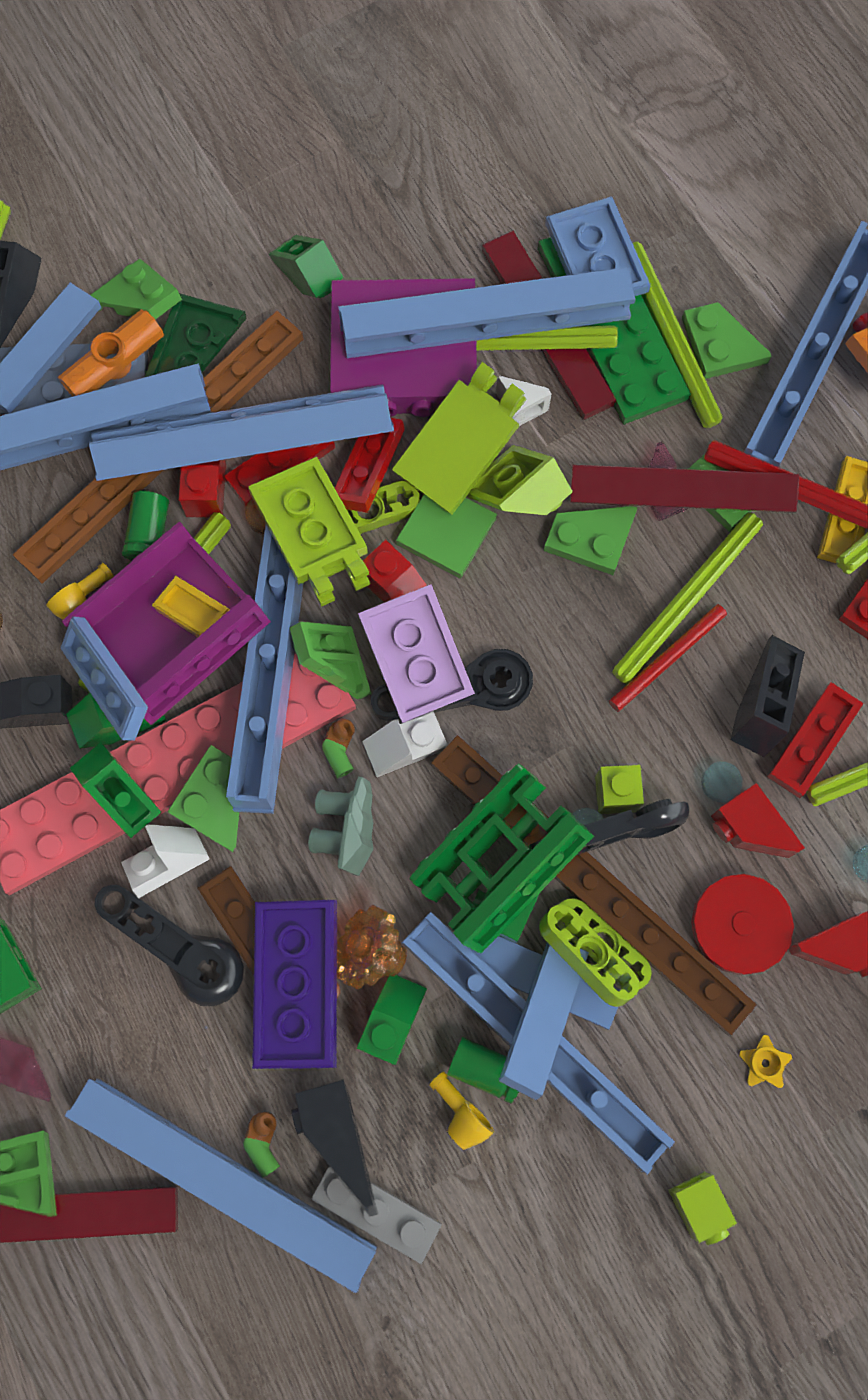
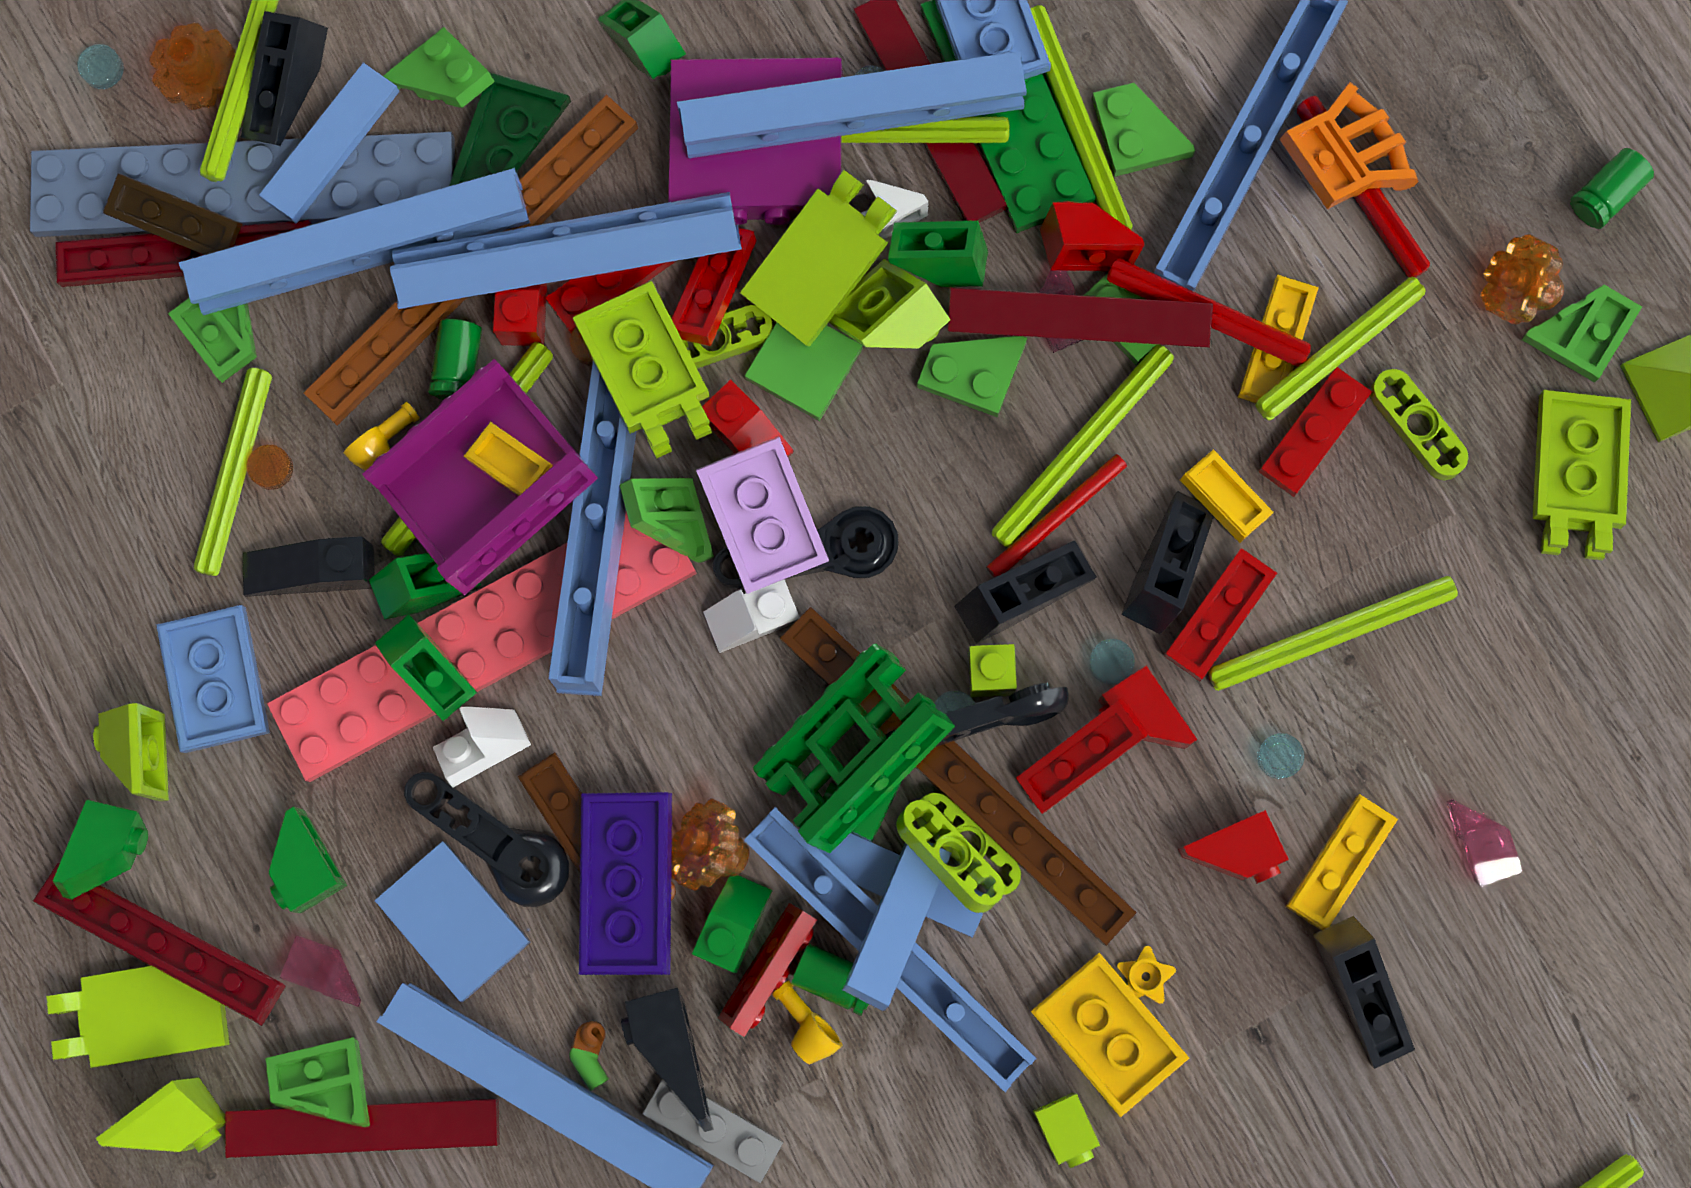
camera: 10 degrees right, 5 degrees up
(104, 678) = (411, 542): medium blue tile -> none
(127, 342) = (433, 136): orange piece -> none
(137, 1021) = (452, 921): none -> medium blue tile
(204, 800) = (524, 678): bright green wing -> none
(336, 744) = (673, 616): arm -> none
(355, 841) = (693, 725): sand green connector -> none
(425, 1062) = (767, 970): none -> red plate
(565, 434) = (941, 251): none -> green slope
(643, 721) = (1024, 591): none -> black slope
(685, 424) = (1086, 238): none -> red slope
(703, 863) = (1082, 756): none -> red plate
(737, 1118) = (1110, 1034): none -> yellow tile
(742, 924) = (1126, 823): red wheel -> none
(814, 639) = (1226, 496): none -> yellow tile

